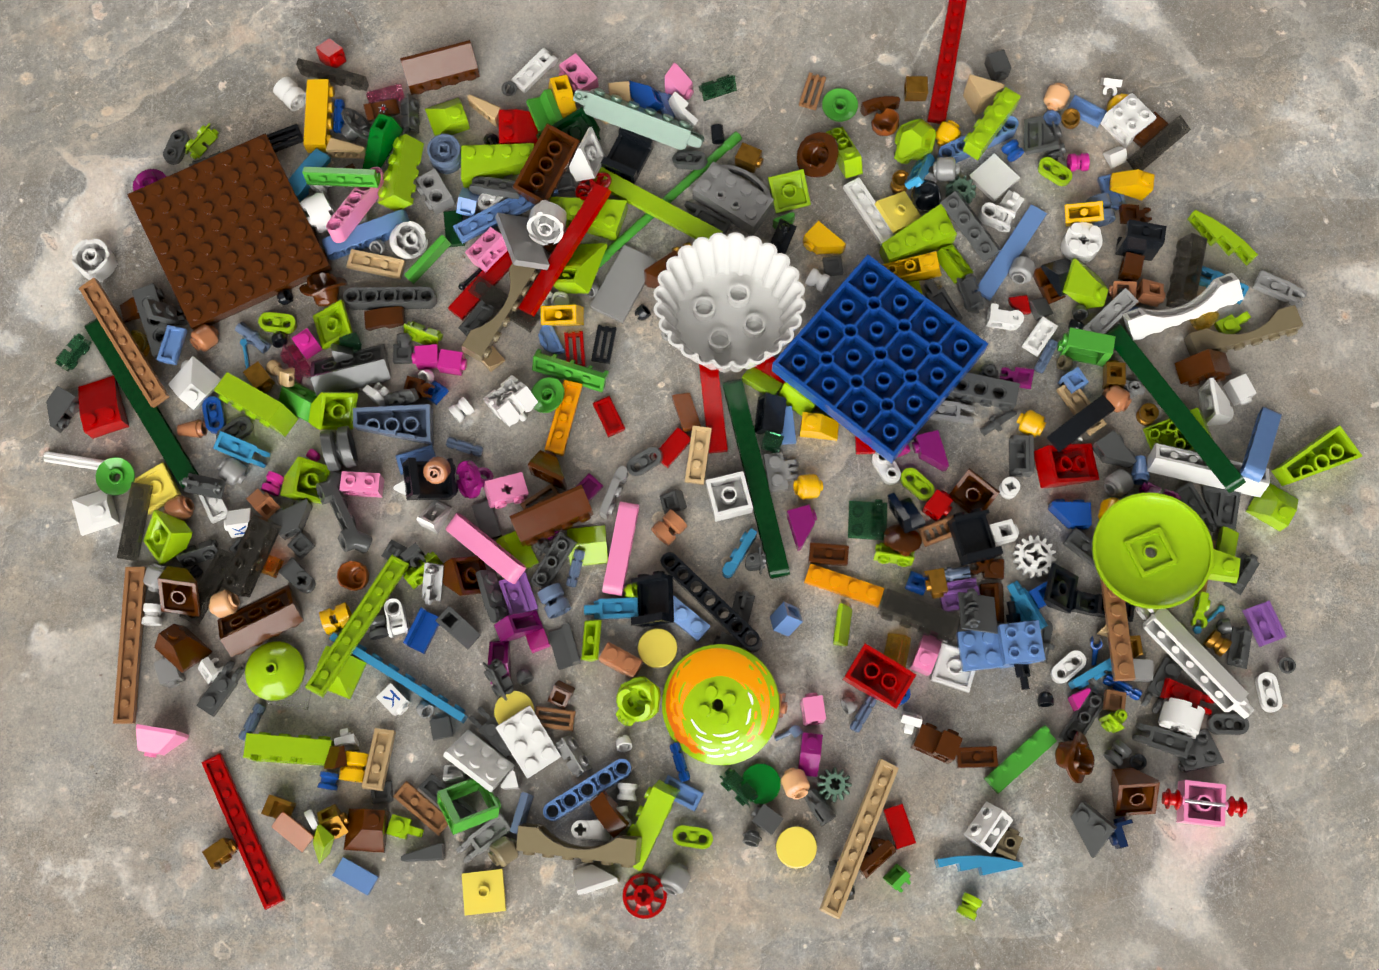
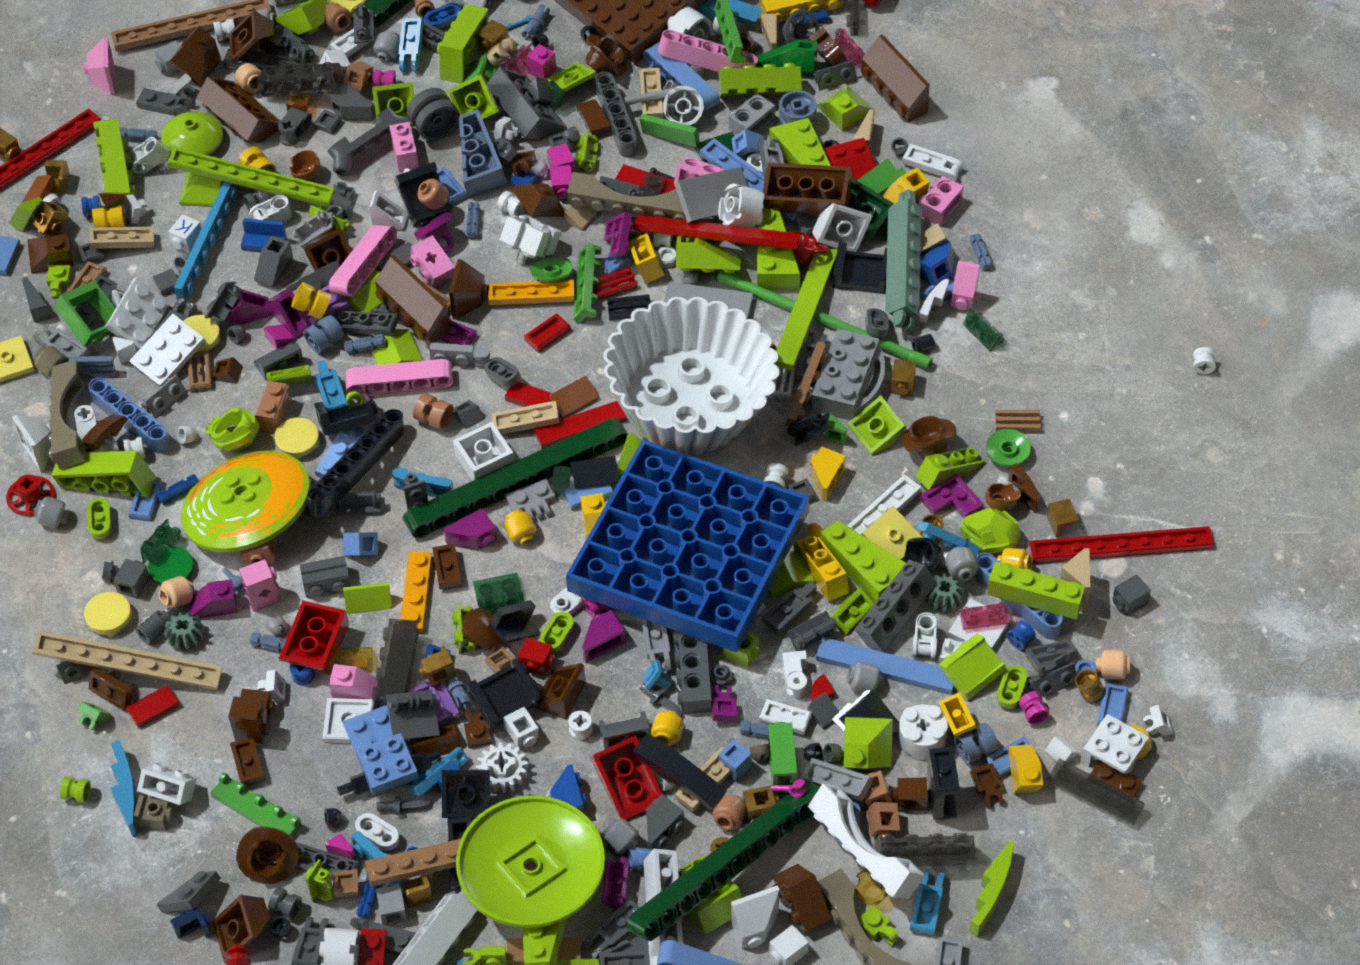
camera: 75 degrees right, 20 degrees down
(278, 324) = (558, 35): lime plate -> none
(287, 719) = (149, 154): none -> white piece
(384, 260) = (646, 97): none -> light grey bar
(467, 385) = (539, 200): none -> reddish brown slope
(525, 601) = (310, 300): none -> yellow wheel
(530, 326) = (617, 234): none -> magenta plate
(638, 64) = (981, 251): none -> sand blue axle
(728, 220) = (811, 376): none -> medium nougat hinge
(812, 654) = (325, 576): none -> dark grey brick
(871, 155) = (952, 492): none -> magenta plate
(981, 420) = (656, 675): none -> dark azure brick
(991, 169) = (984, 616): none -> clear pink hinge
(1035, 190) = (972, 666): none -> lime slope
(1120, 344) = (795, 789): none -> dark pink hand

